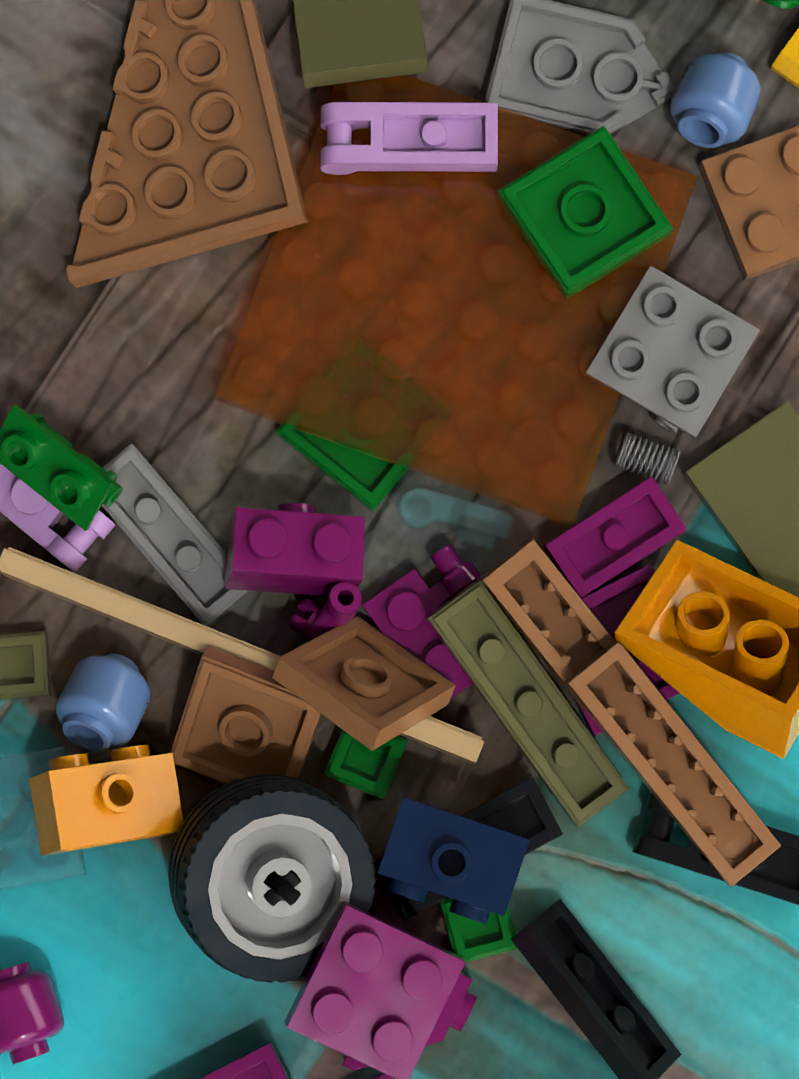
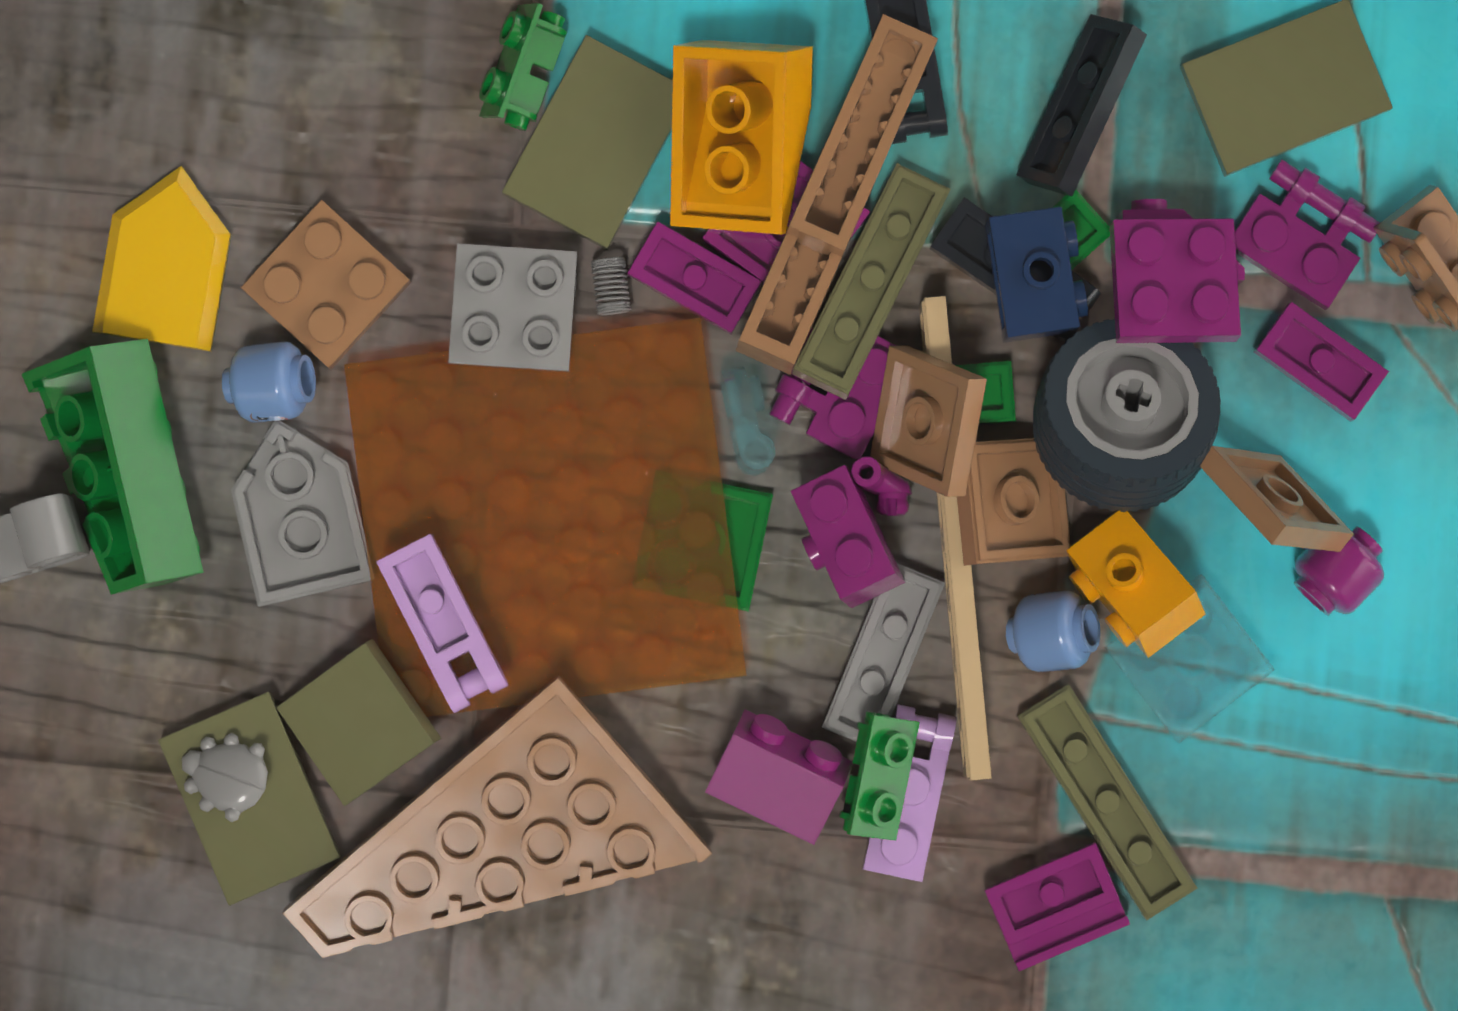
camera: 125 degrees left, 5 degrees up
(105, 375) = (780, 776): none -> magenta brick
(111, 979) = (1276, 499): none -> medium nougat tile
(584, 212) = (430, 441): green tile -> none

